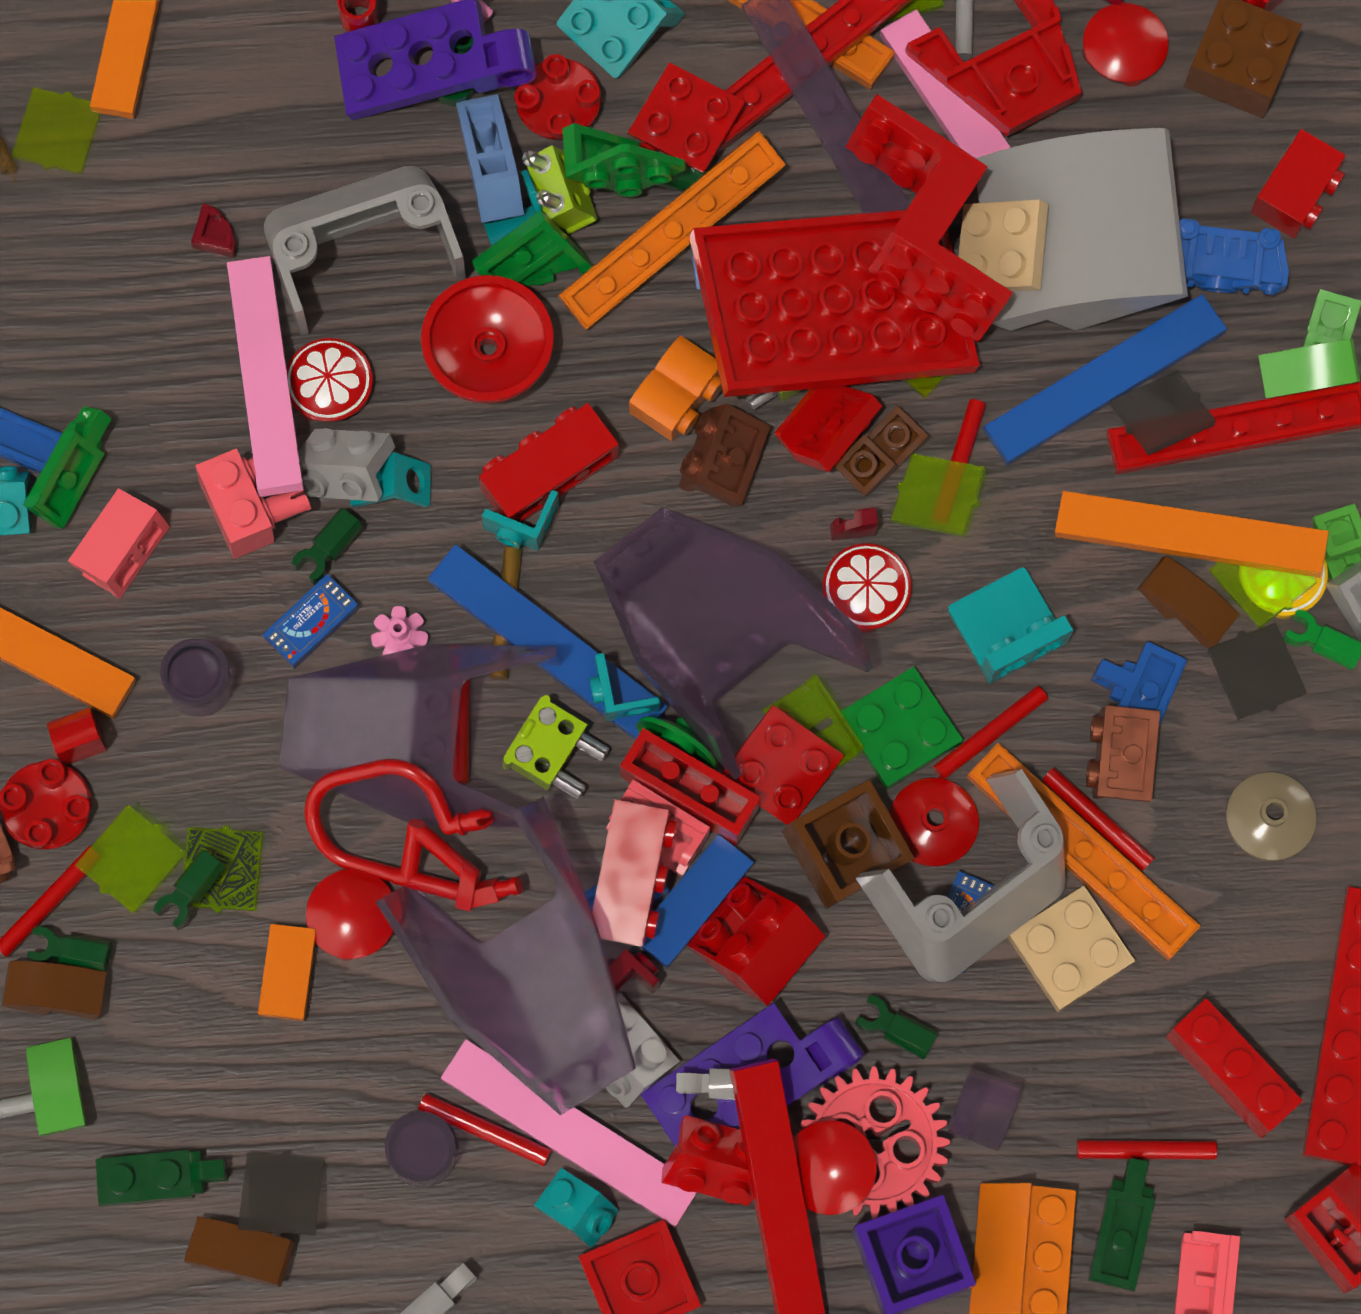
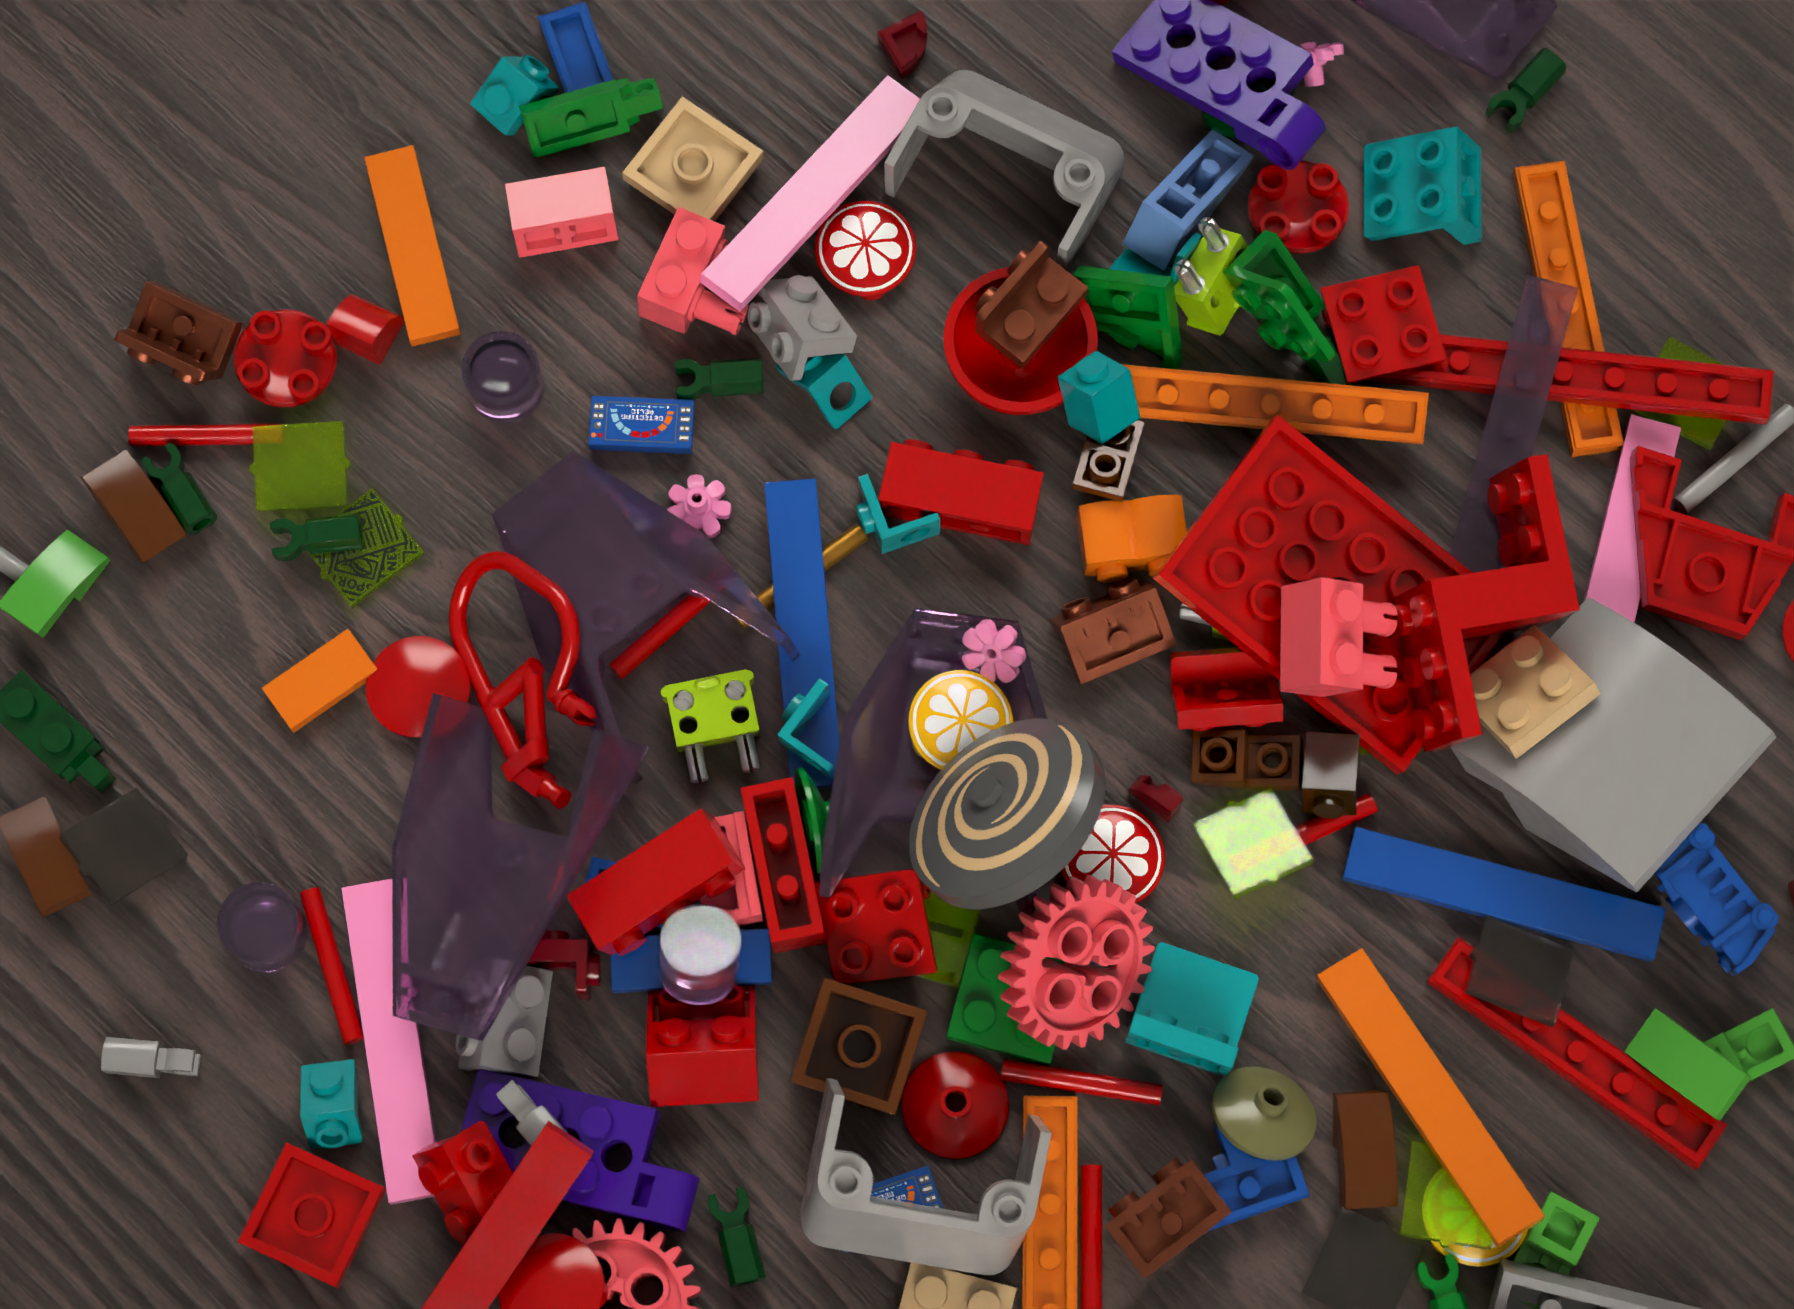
camera: 50 degrees right, 0 degrees up
(166, 433) = (693, 162): none -> tan plate
(475, 312) = (1028, 305): none -> copper bracket
(572, 325) = (1099, 397): none -> teal brick
(611, 355) = (1107, 466): none -> reddish brown slope
(674, 536) = (993, 651): none -> bright pink plant
(698, 598) = (953, 713): none -> dish
(702, 887) = (699, 954): none -> piece
(795, 616) = (1007, 813): none -> dark grey dish
(862, 329) = (1324, 638): none -> coral brick
(903, 640) = (1076, 925): none -> coral gear
(941, 408) = (1331, 774): none -> dark brown brick
(1112, 640) = (1264, 1113): none -> olive dish

